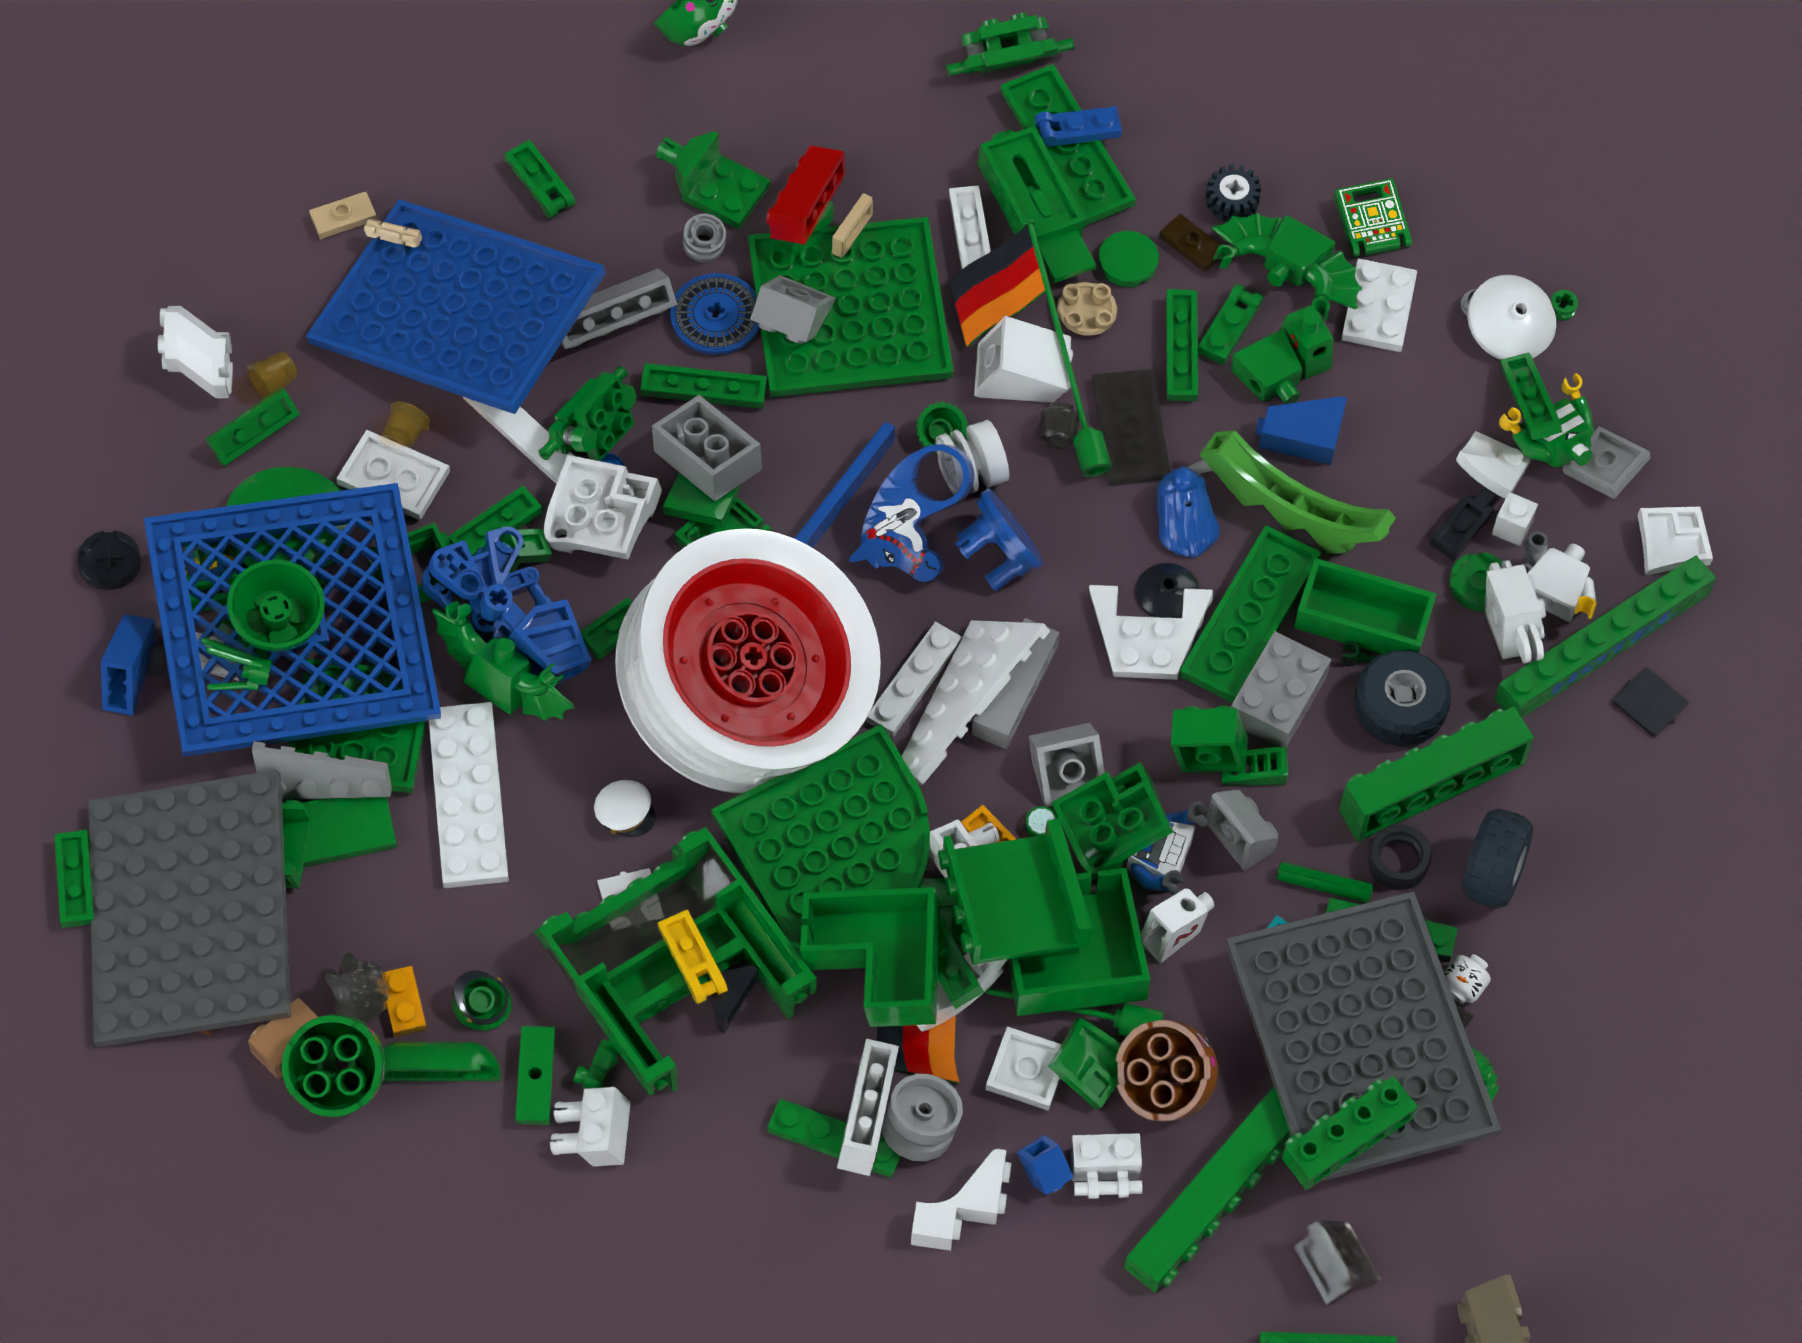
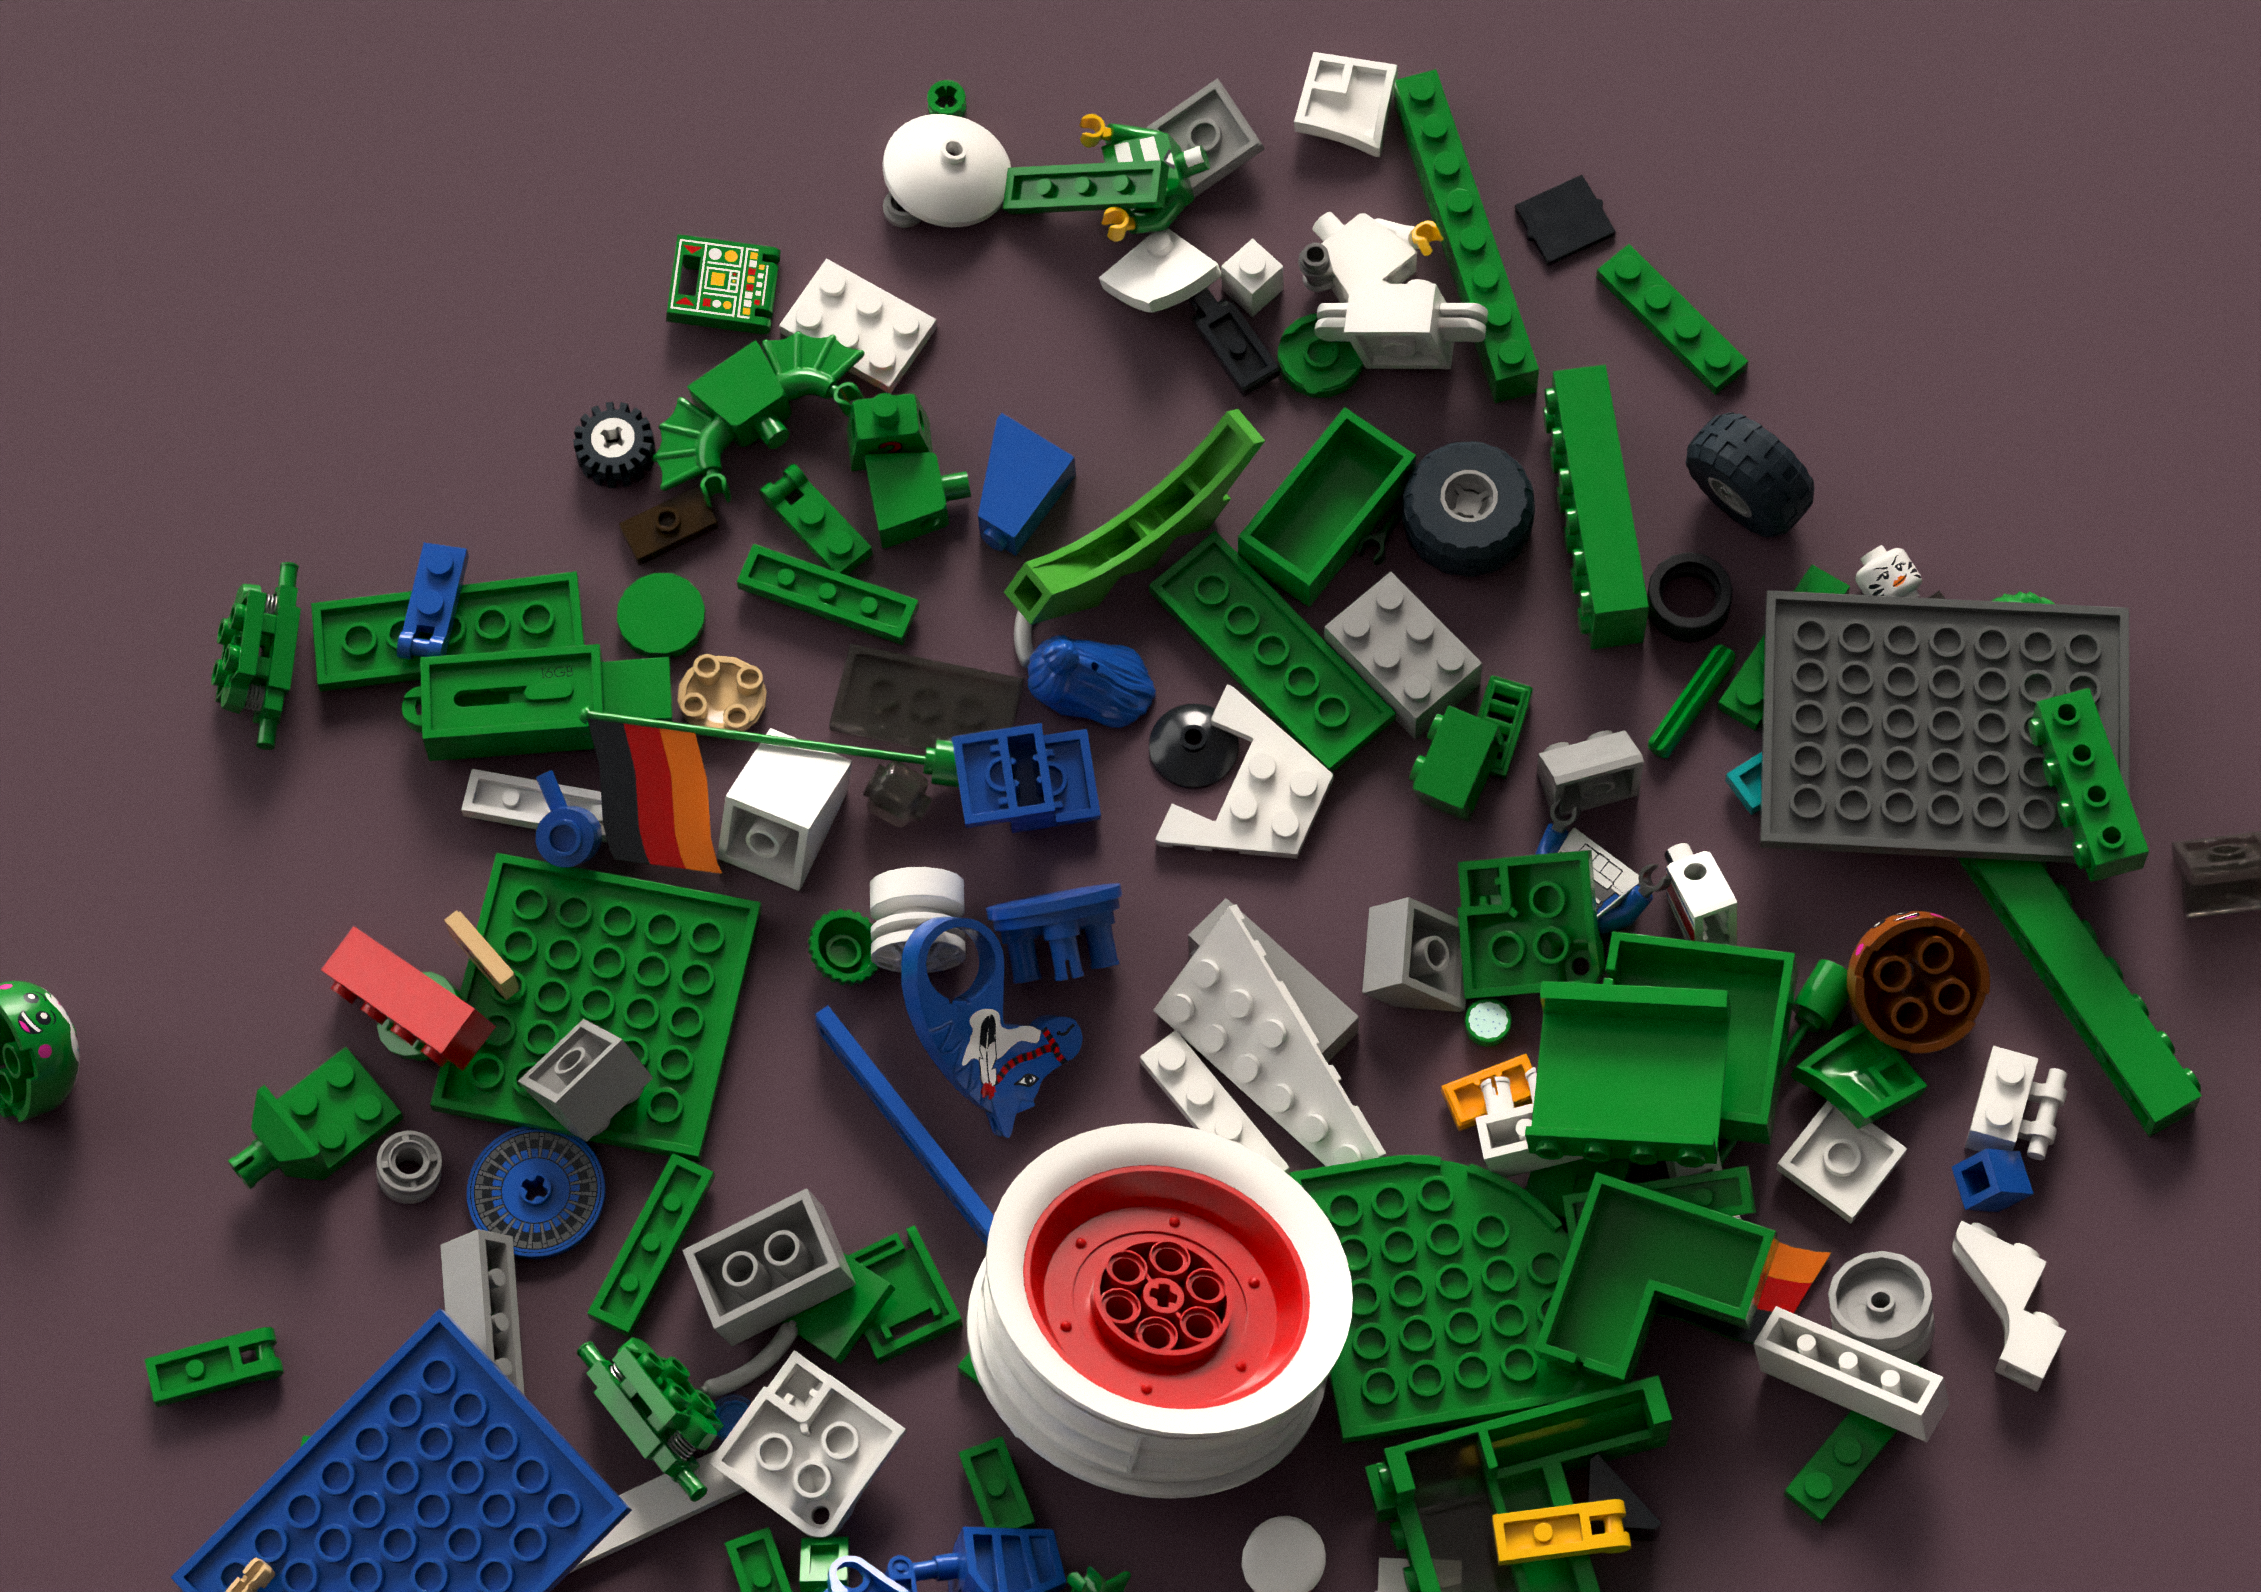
camera: 65 degrees left, 5 degrees up
(644, 469) = (755, 1367): none -> light grey piece
(954, 247) = (567, 832): none -> blue piece
(1094, 489) = (1026, 778): none -> blue bracket
(1604, 789) = (1672, 319): none -> green plate

